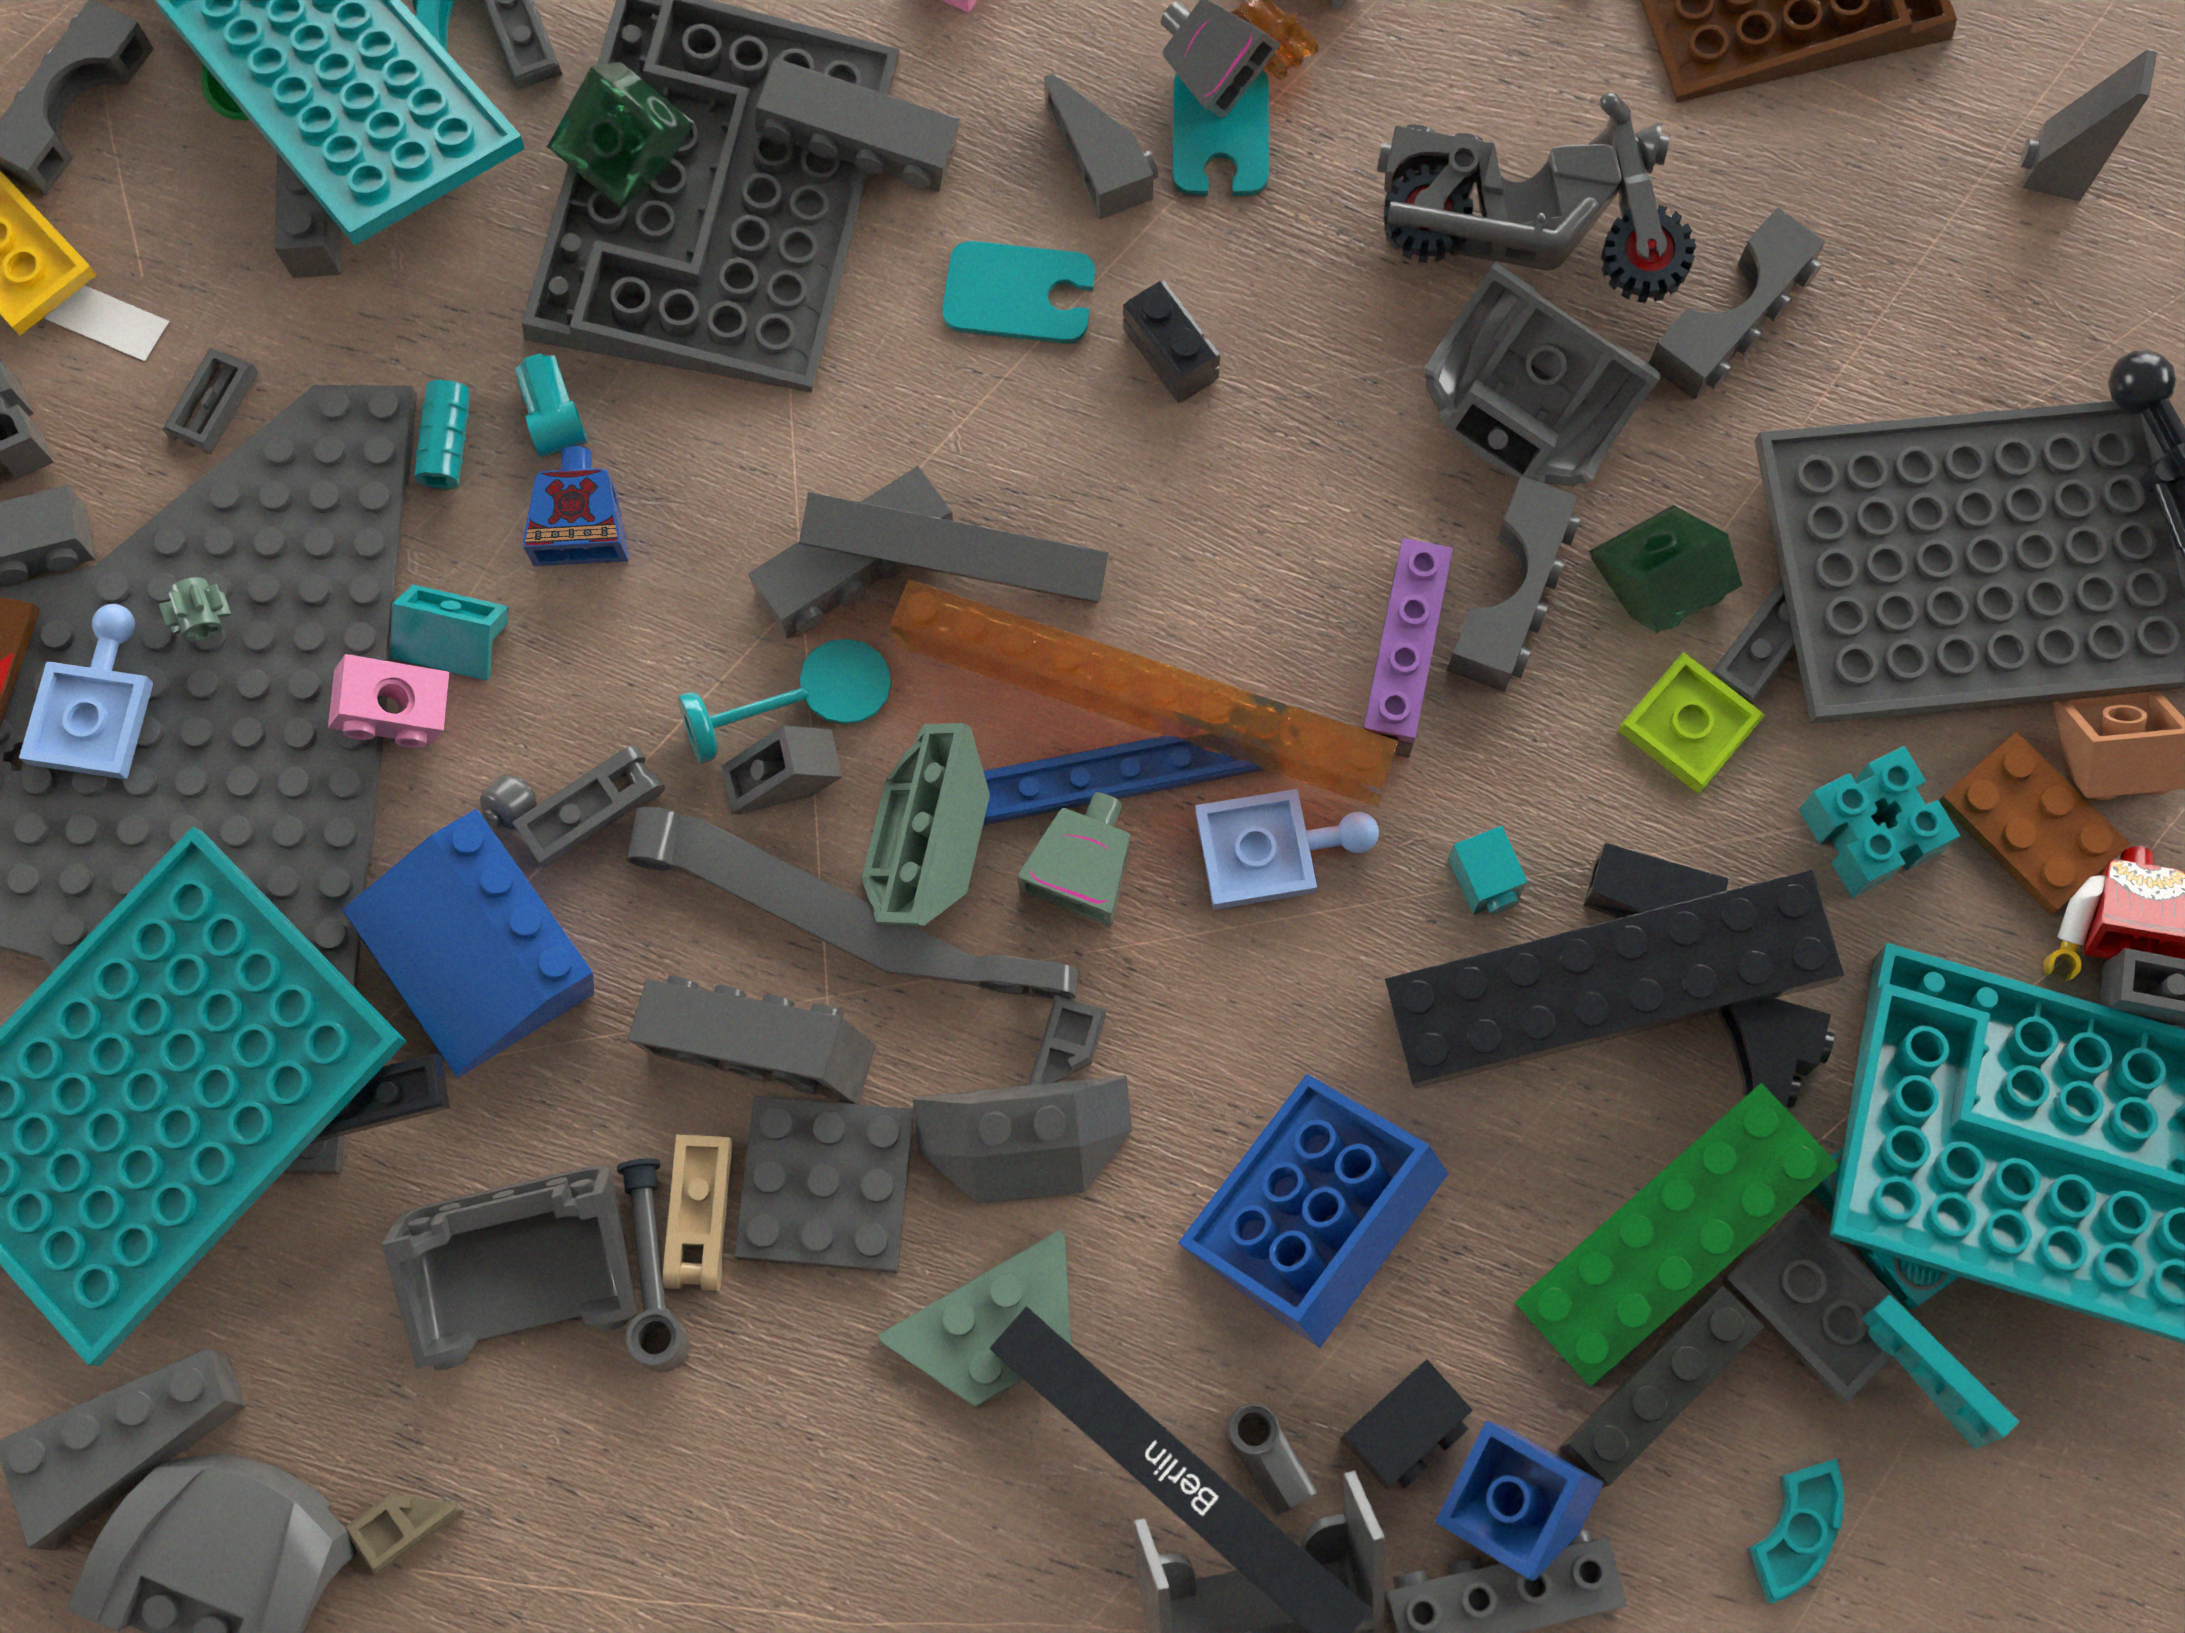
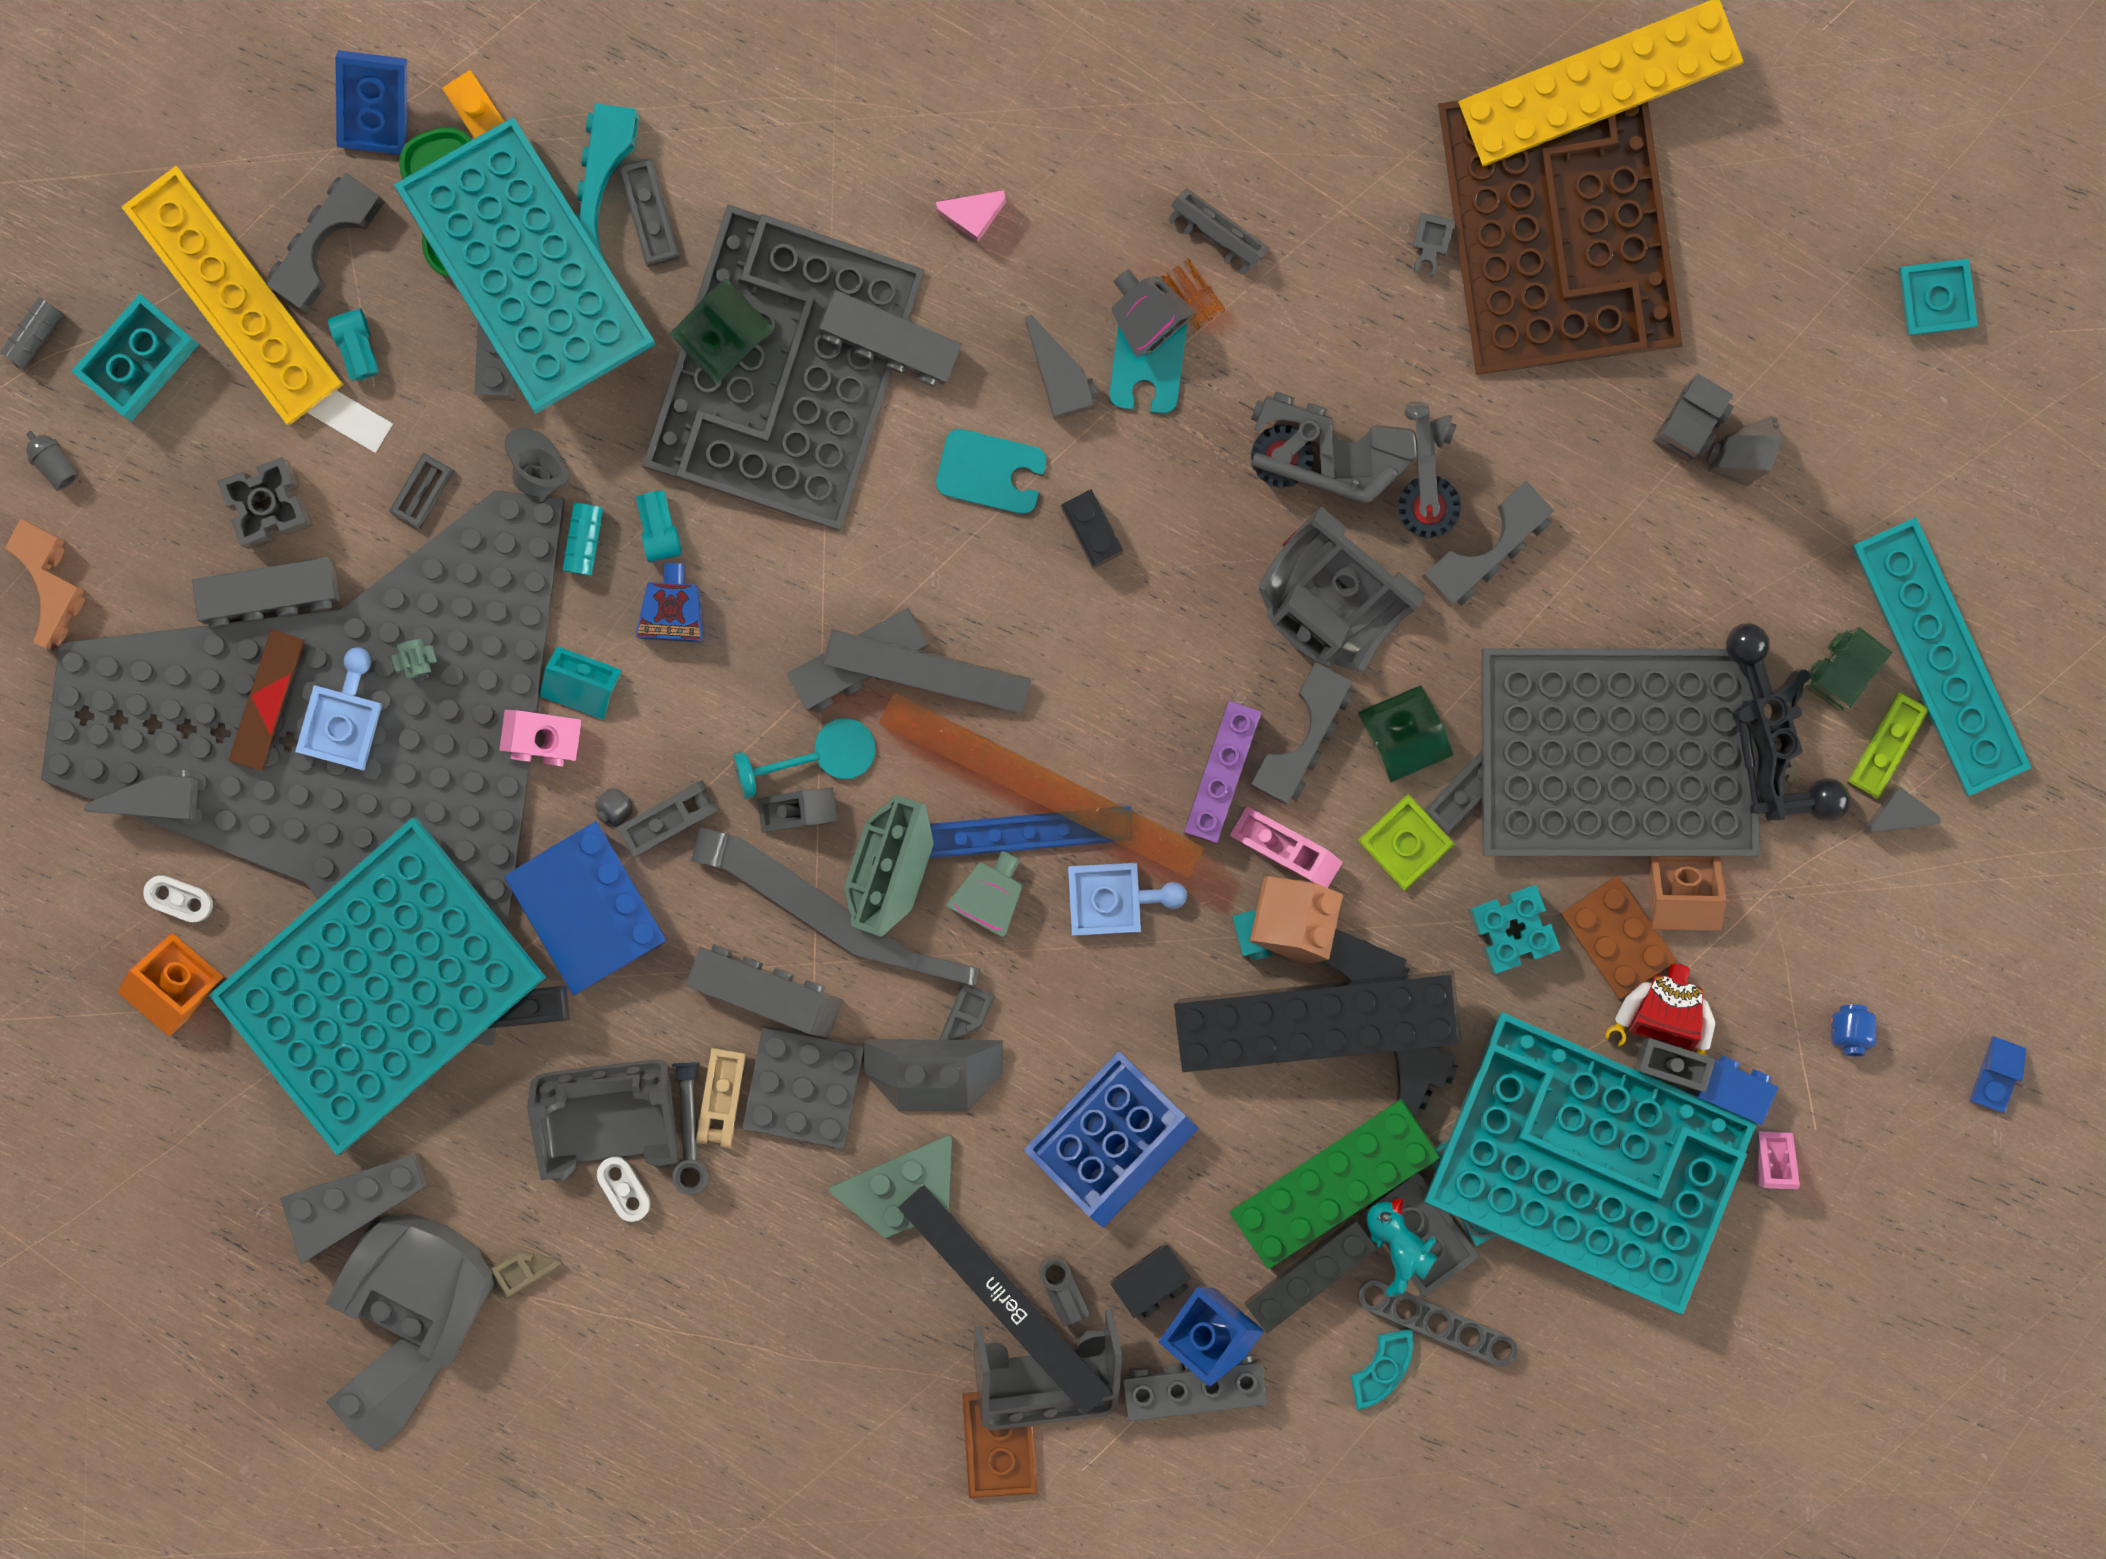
camera: 10 degrees right, 15 degrees up
(106, 210) = (352, 335): none -> teal piece
(367, 343) = (535, 463): none -> dark grey piece
(554, 1374) = (621, 1190): none -> white plate
(1521, 745) = (1286, 848): none -> bright pink slope
(1553, 836) = (1296, 919): none -> nougat slope
(1812, 1323) = (1407, 1251): none -> teal animal
(1902, 1444) = (1450, 1334): none -> dark grey beam
(1945, 1381) = (1476, 1289): teal wing -> none
(1998, 104) = (1692, 418): none -> dark grey brick

